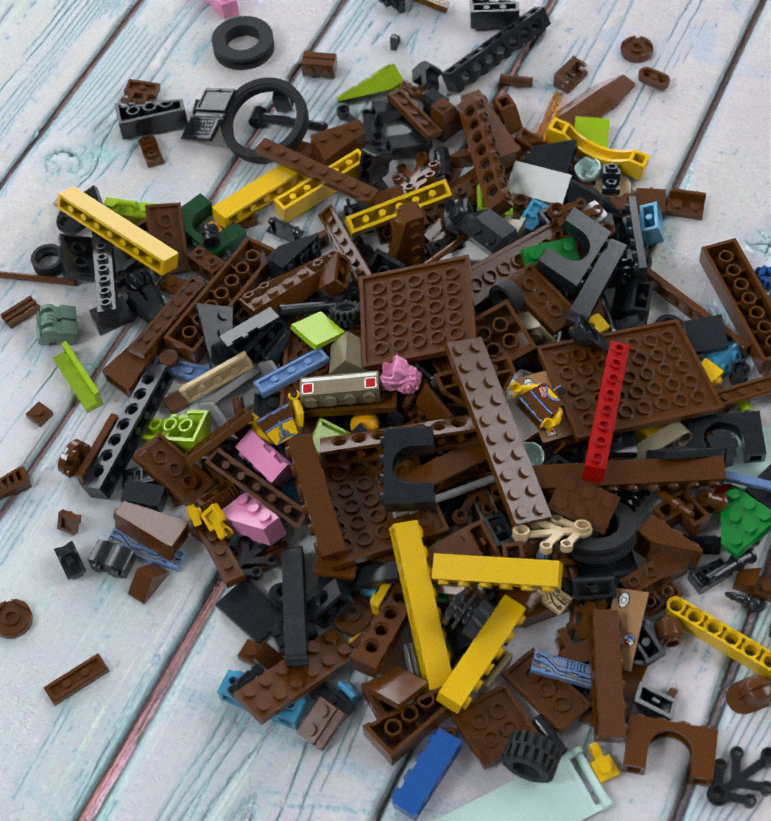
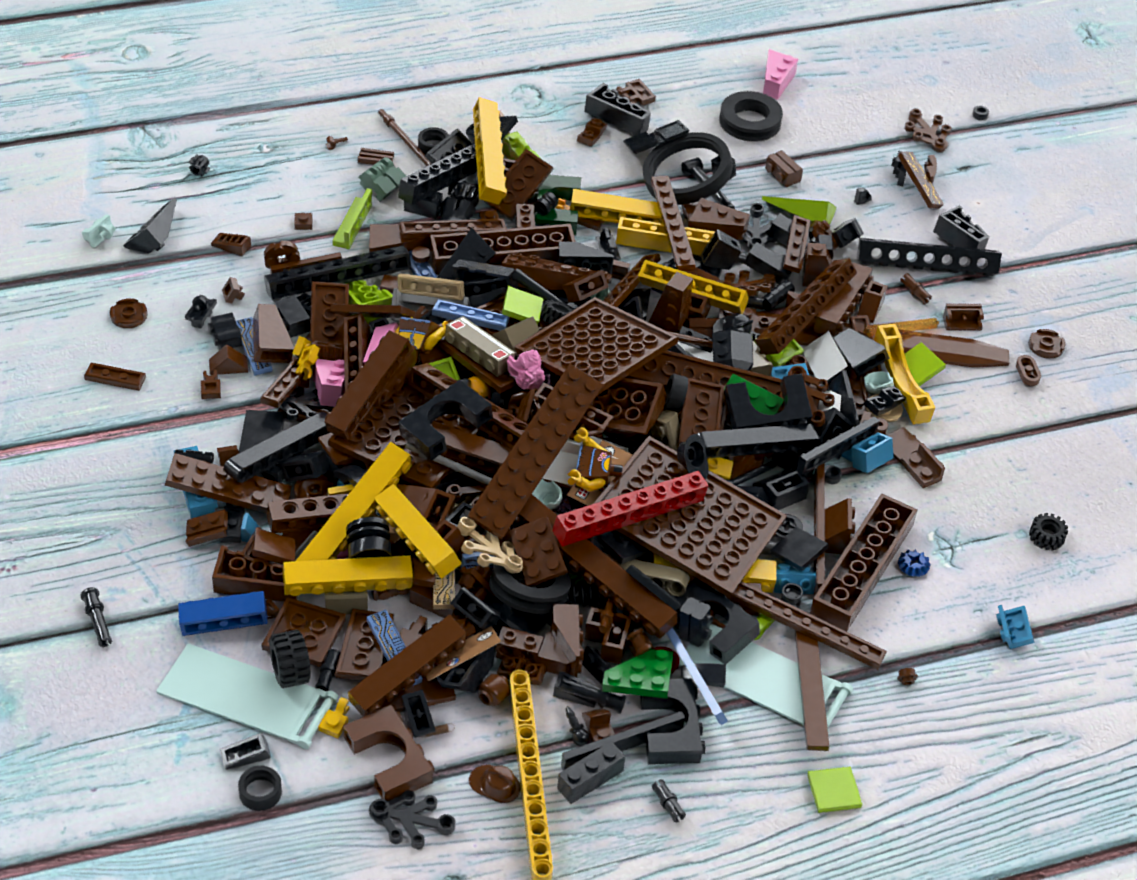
camera: 40 degrees right, 10 degrees down
(163, 614) = (210, 386): none -> reddish brown plate
(706, 292) = (839, 526): none -> reddish brown slope

